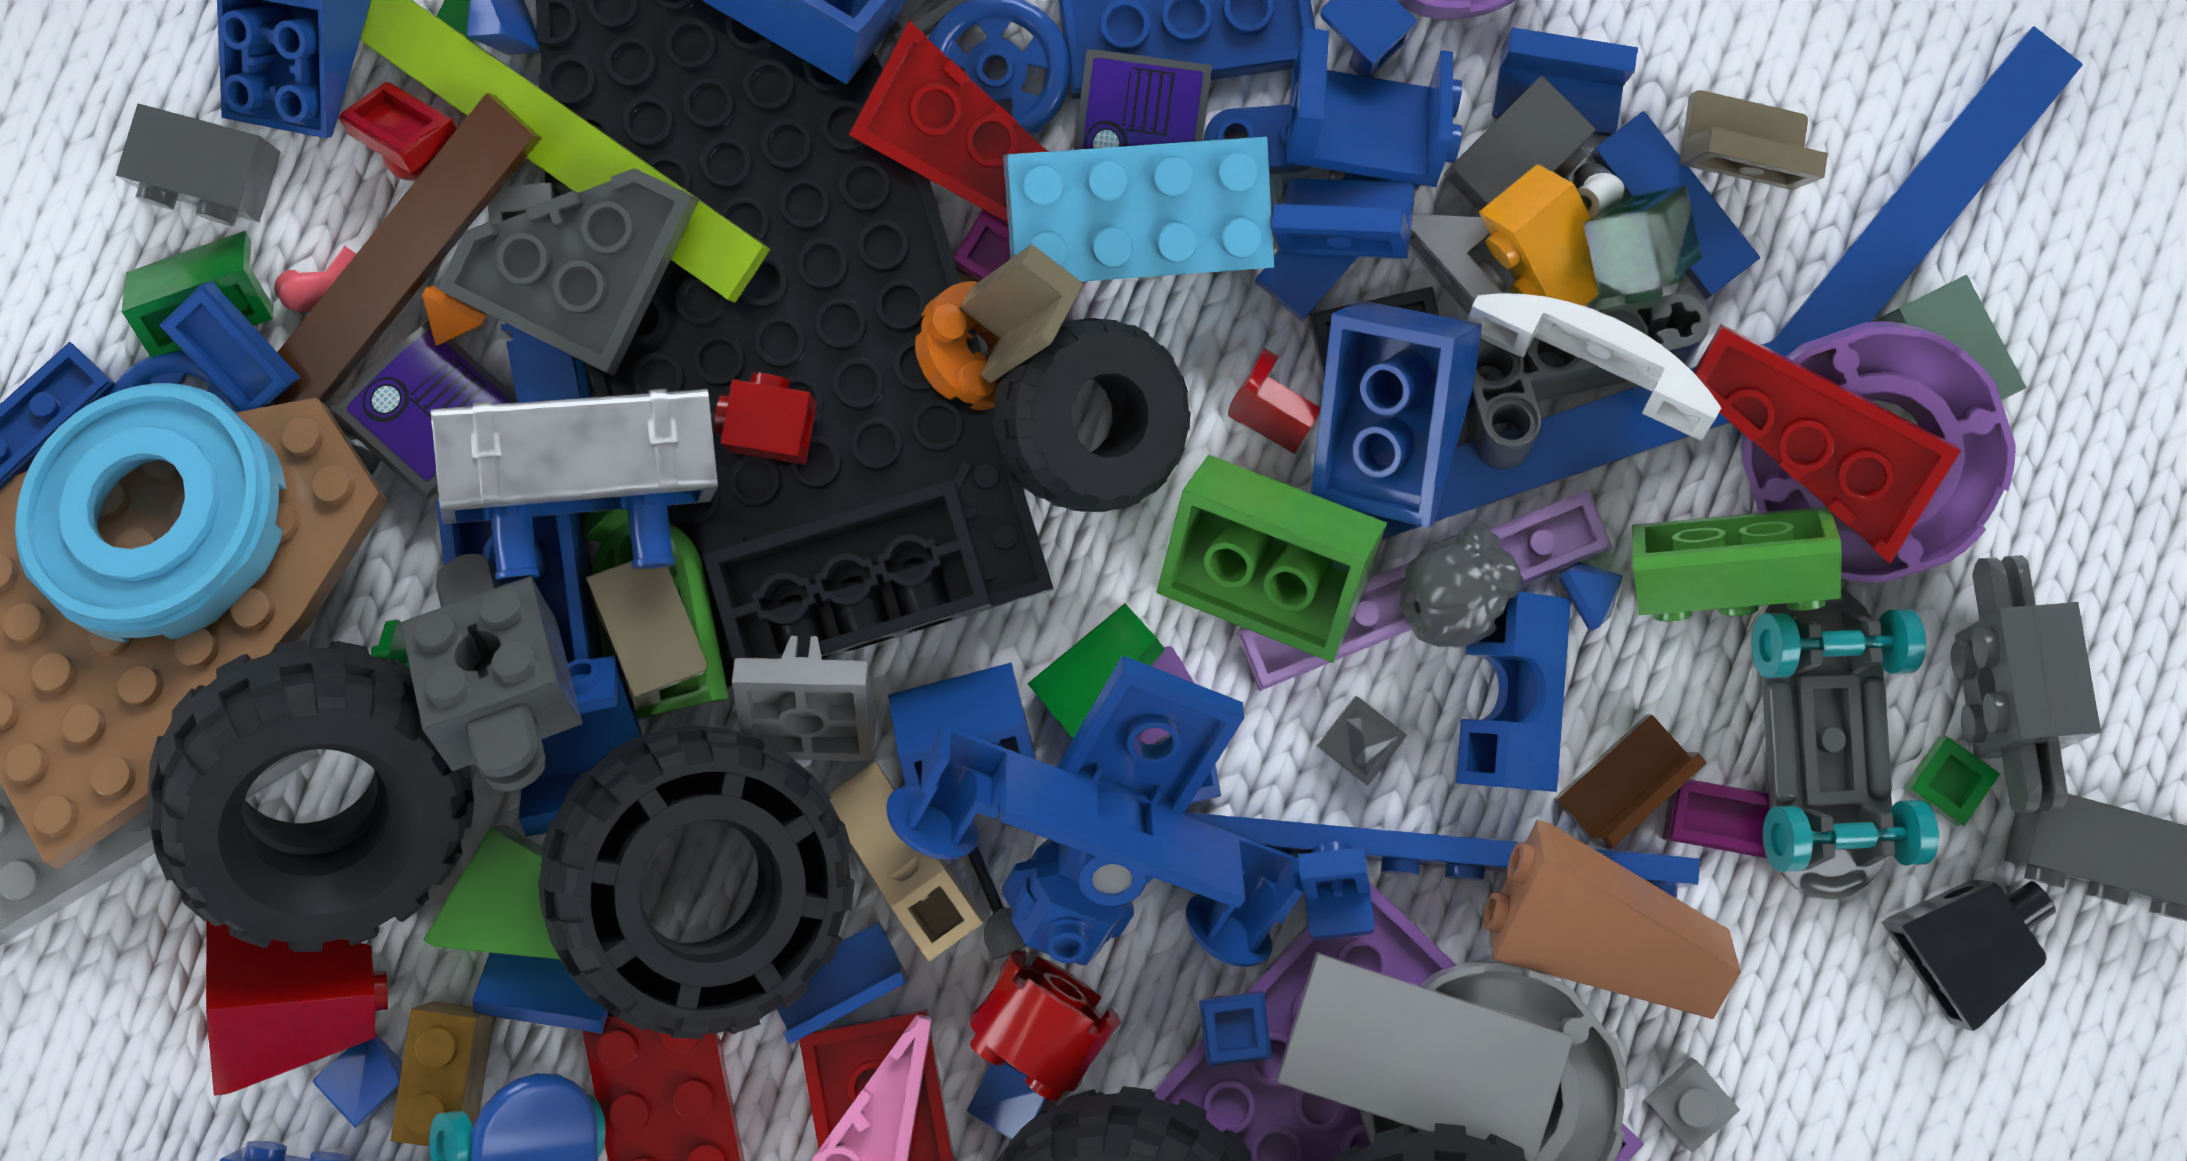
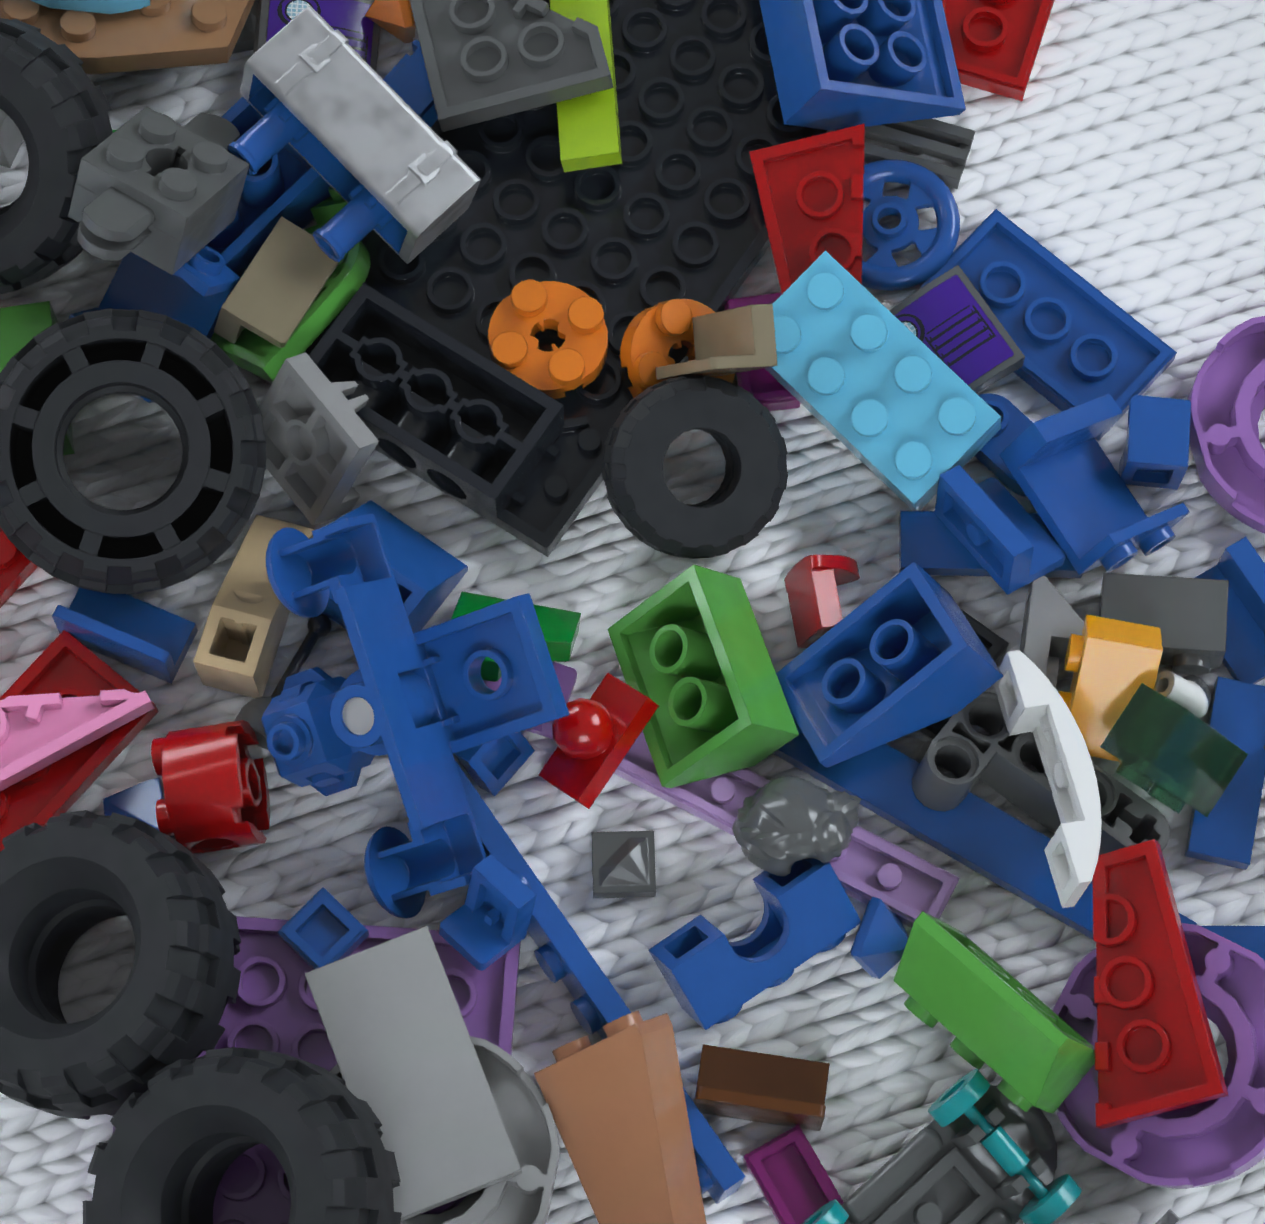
camera: 50 degrees right, 15 degrees down
(766, 419) = (497, 252): red brick -> none
(884, 403) = (556, 307): none -> orange plate
(1250, 671) = (596, 738): none -> red tile

